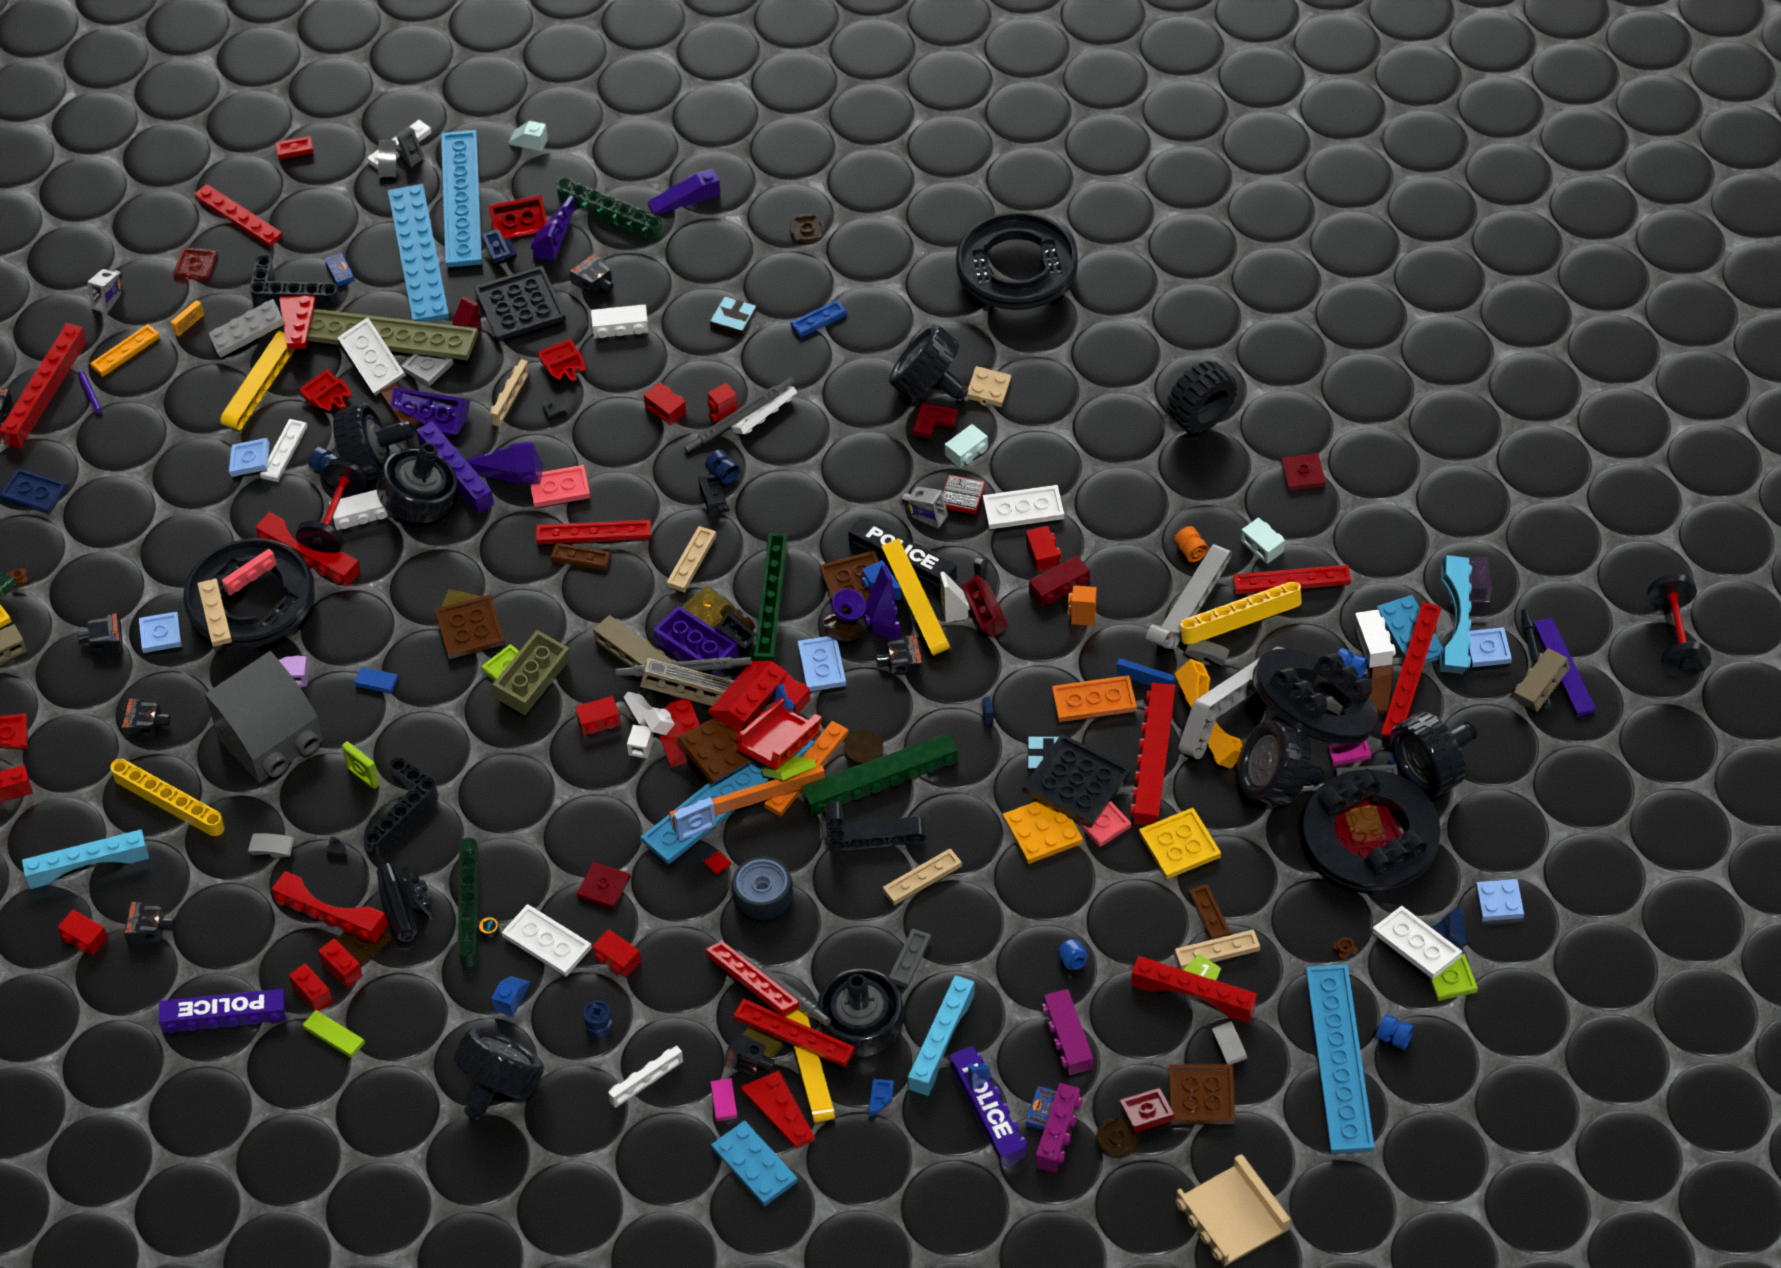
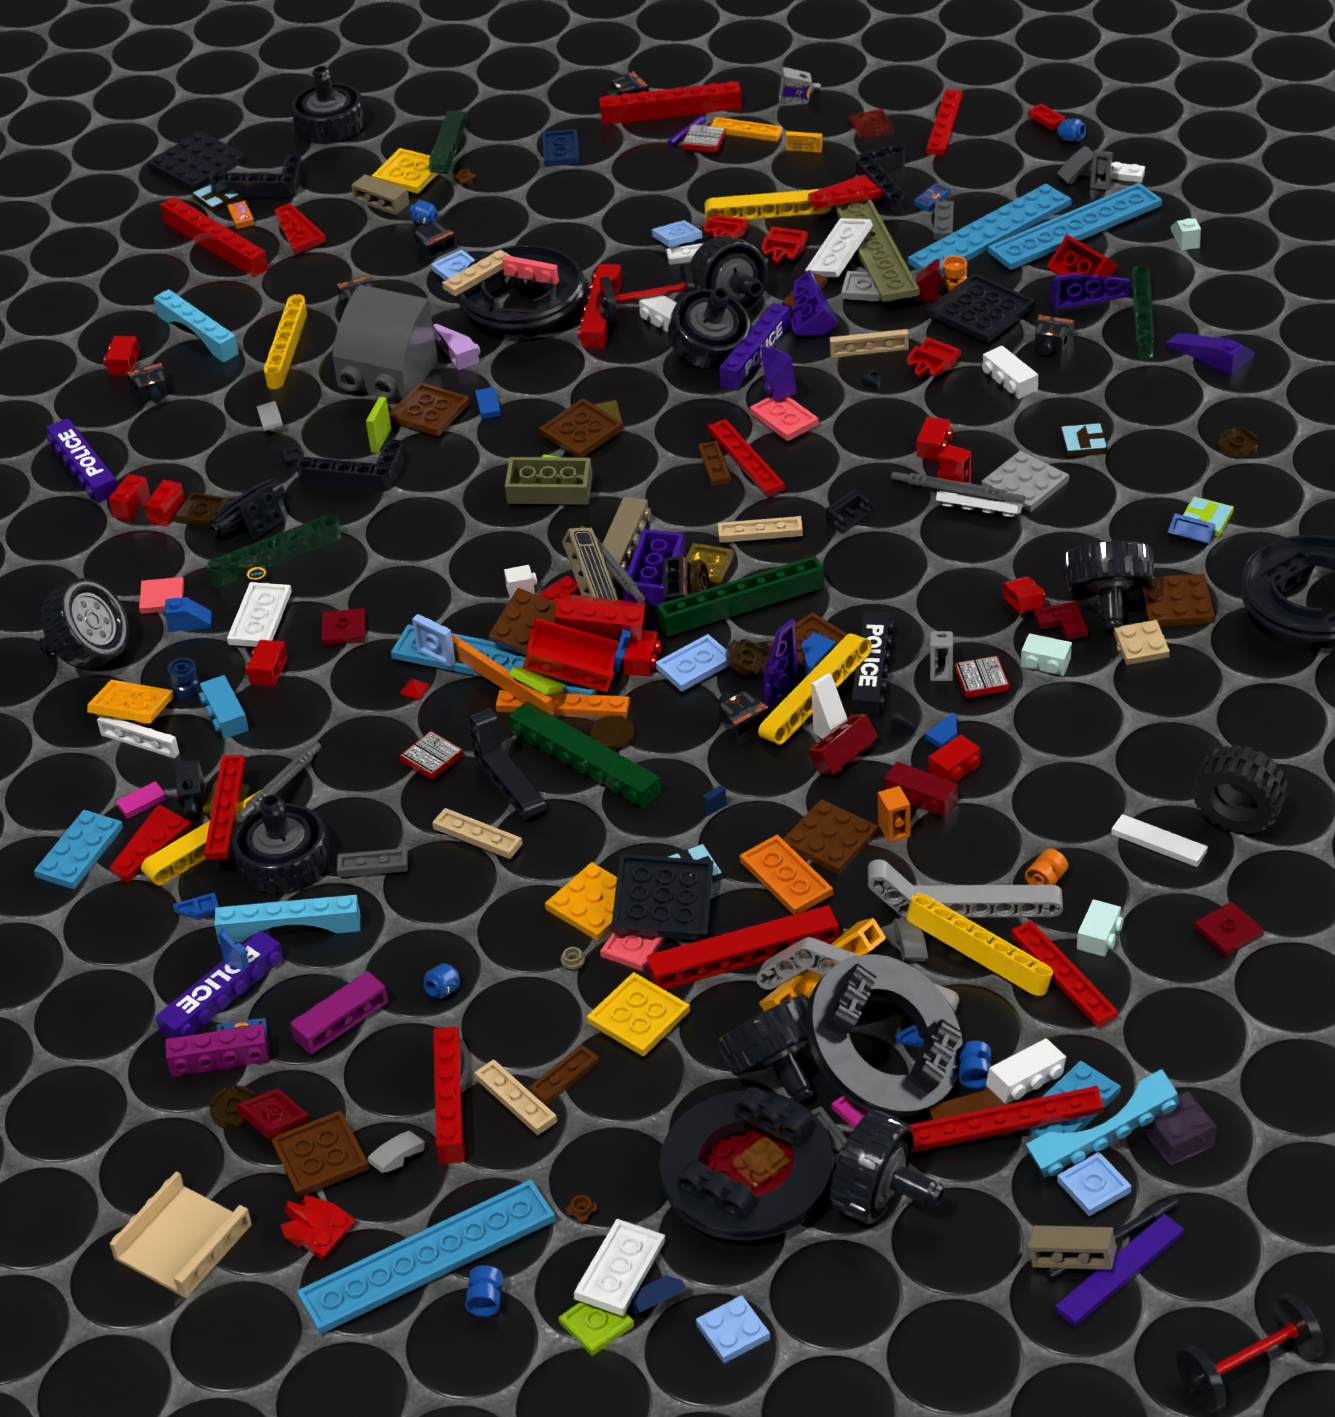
camera: 65 degrees right, 10 degrees down
(55, 627) = (423, 213): none -> blue head
(117, 383) = (703, 138): none -> tile
(246, 328) = (815, 172): light grey plate -> none
(269, 420) = (725, 225): none -> red plate
(330, 140) = (1071, 130): none -> blue head
(333, 1033) = (93, 533): lime tile -> none
(355, 721) = (429, 408): none -> reddish brown plate
(362, 921) = (224, 449): red arch -> none
(377, 276) = (943, 219): none -> dark grey plate
(462, 1006) = (156, 591): none -> coral tile
(465, 289) = (954, 271): none -> orange wheel
(498, 246) = (1037, 268): dark blue slope -> none
(598, 715) = (532, 543): red brick -> none
(605, 1066) = (130, 701): none -> light orange plate
(652, 1002) = (223, 707): none -> dark azure brick
(656, 719) = (549, 571): white slope -> none
(724, 467) = (884, 502): dark blue wheel -> none
(752, 978) = (278, 756): red plate -> none
(753, 371) = (1027, 477): none -> light grey plate
(762, 888) = (390, 723): wheel -> none
(812, 876) = (431, 755): none -> tile
(818, 318) = (1129, 495): blue tile -> none
(850, 599) = (758, 638): dark purple piece -> none
(877, 286) = (1210, 512): none -> tile
(888, 300) = (1191, 529): none -> blue tile
(893, 429) = (1023, 594): none -> red brick
(971, 342) = (1178, 600): none -> reddish brown plate
(1003, 542) = (943, 732): none -> blue tile
(1023, 507) = (1000, 726): white plate -> none
(1068, 656) = (830, 836): none -> reddish brown plate
(1096, 859) = (572, 958): none -> dark tan plate
(1142, 673) = (843, 899): blue tile -> none
(1195, 470) = (1159, 840): none -> white tile
(1203, 967) = (477, 1094): lime sticker -> none
(1271, 1119) = (316, 1225): none -> red plate

